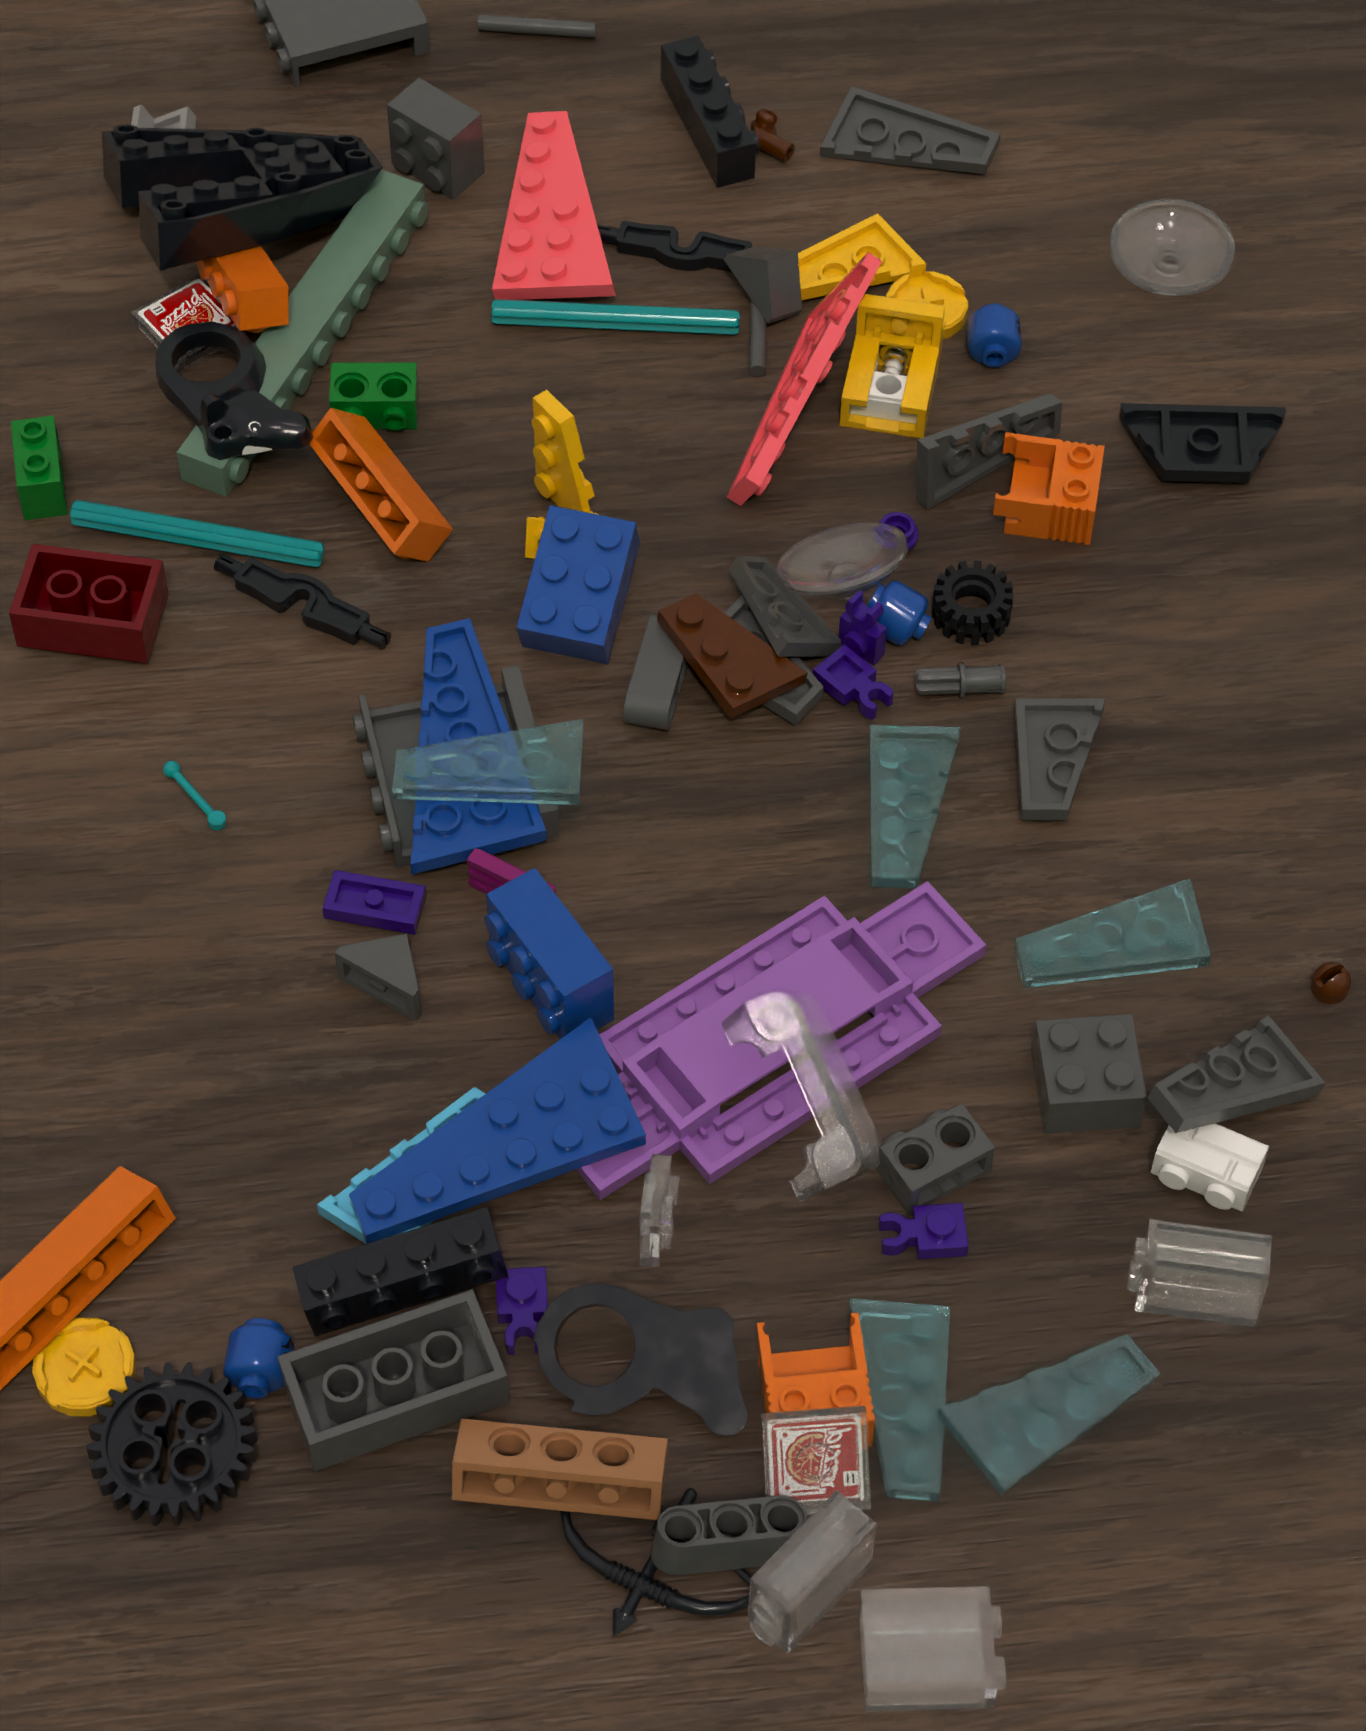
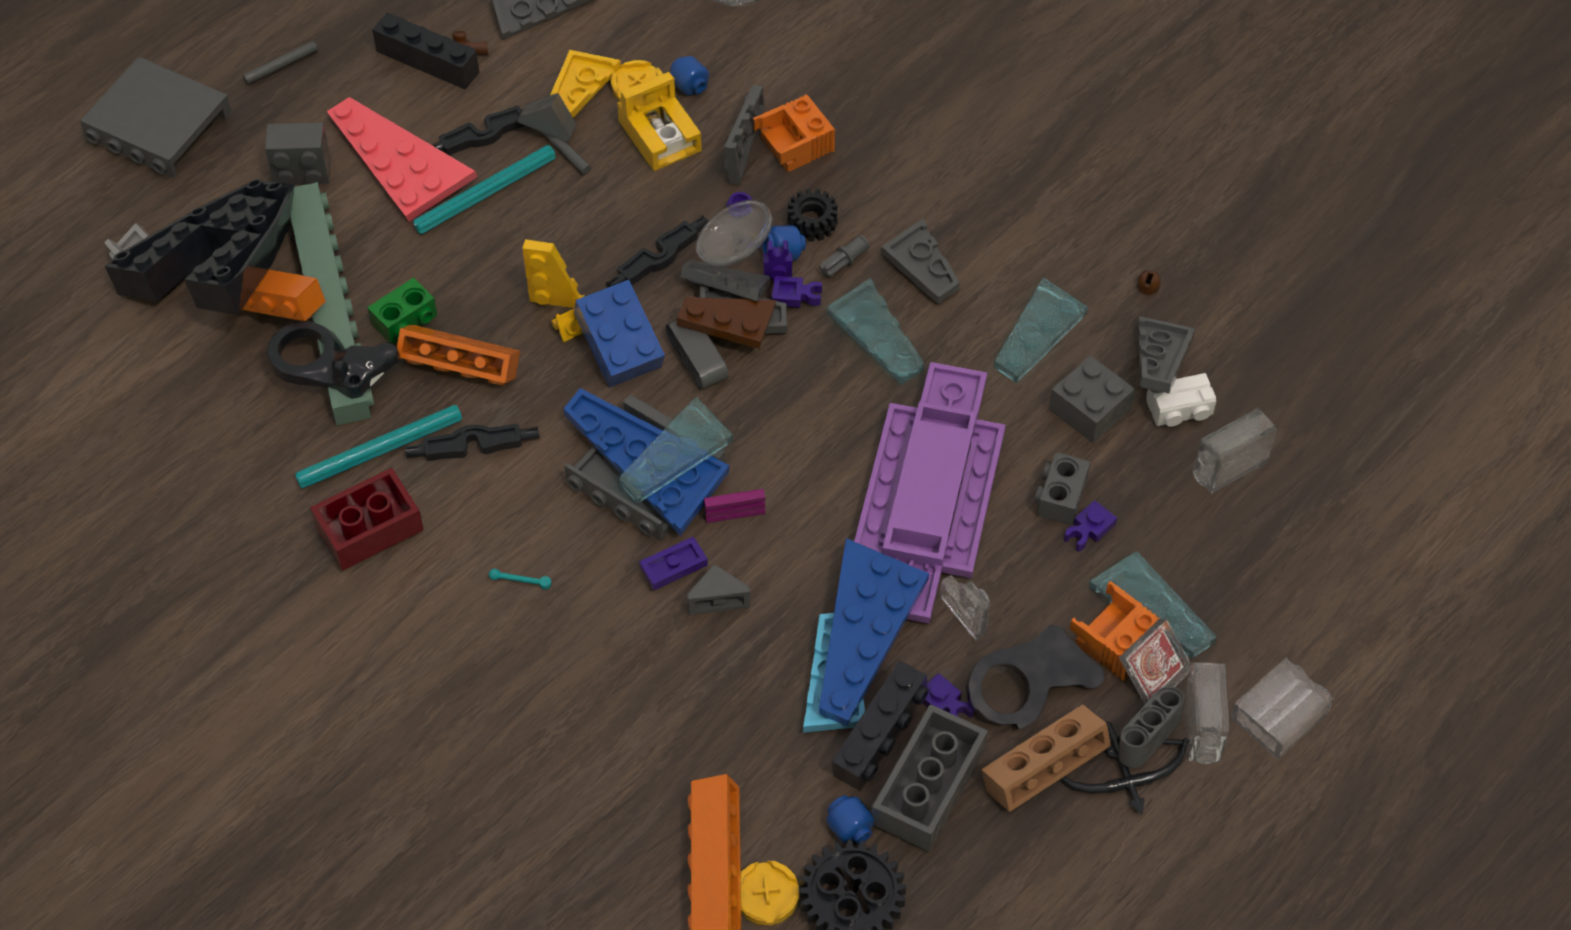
camera: 40 degrees left, 0 degrees up
(38, 467) = (258, 469): green brick -> none
(180, 307) = (249, 337): tile -> none
(548, 955) = (796, 524): blue brick -> none
(715, 526) = (669, 245): none -> black piece
(800, 1027) = (1025, 511): clear windscreen -> none
(805, 367) = (618, 149): coral wing -> none
(1034, 1418) = (1225, 565): clear light blue wing -> none
(1203, 440) = (839, 64): black wing -> none

